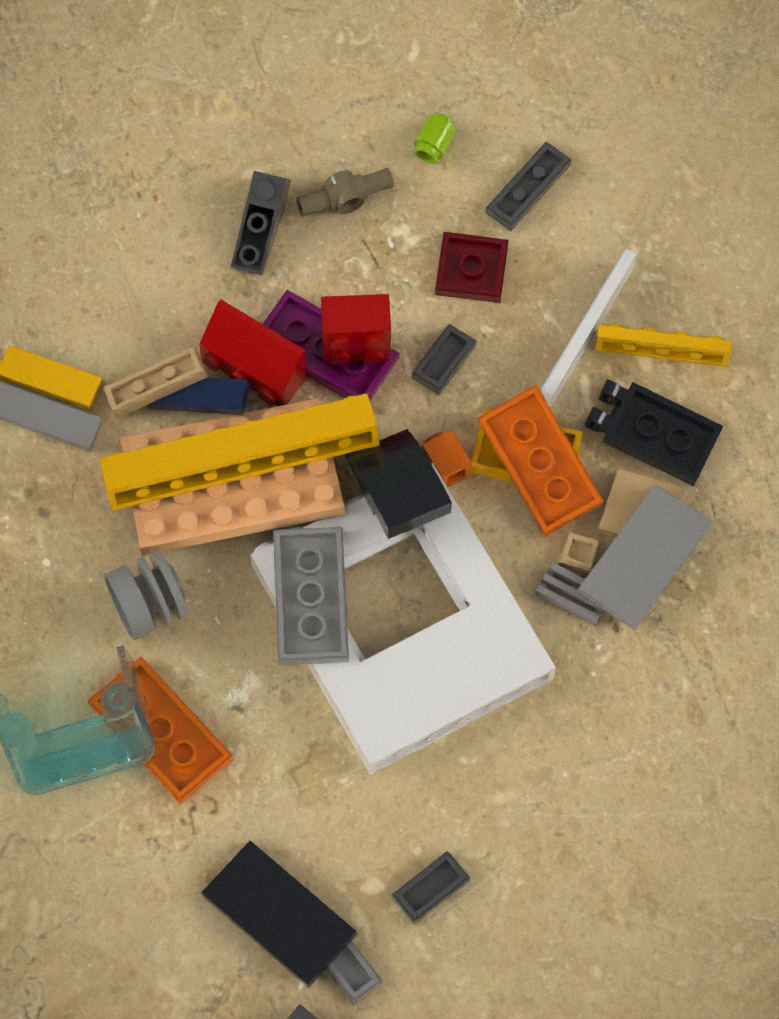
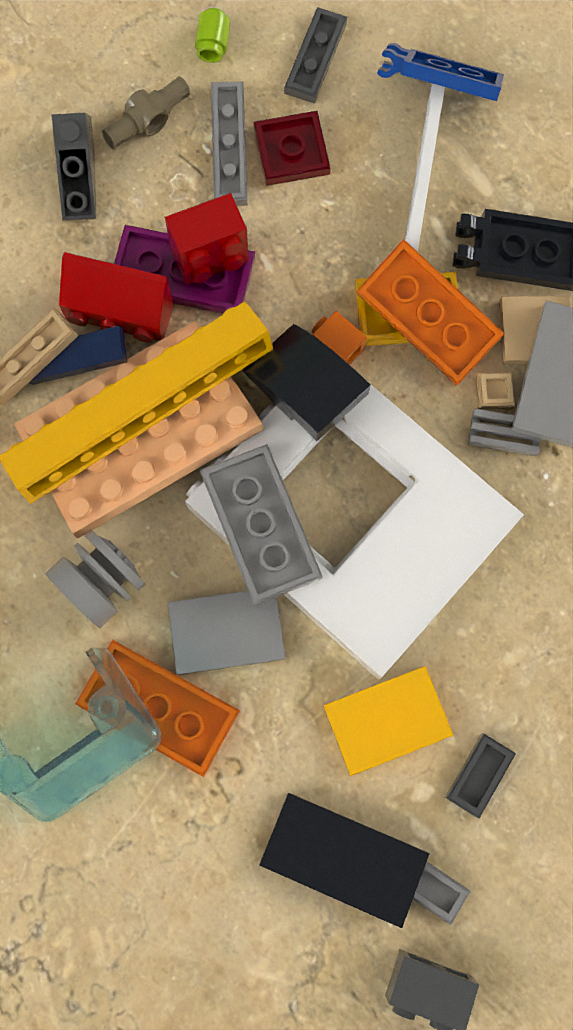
camera: 20 degrees left, 10 degrees up
(245, 685) = (224, 632): none -> light grey tile
(364, 811) = (387, 720): none -> yellow tile
(413, 244) = (229, 141): none -> light grey tile
(444, 359) = (298, 244): dark grey tile -> none
(640, 241) = (441, 71): none -> blue tile
(662, 345) = (499, 165): yellow plate -> none

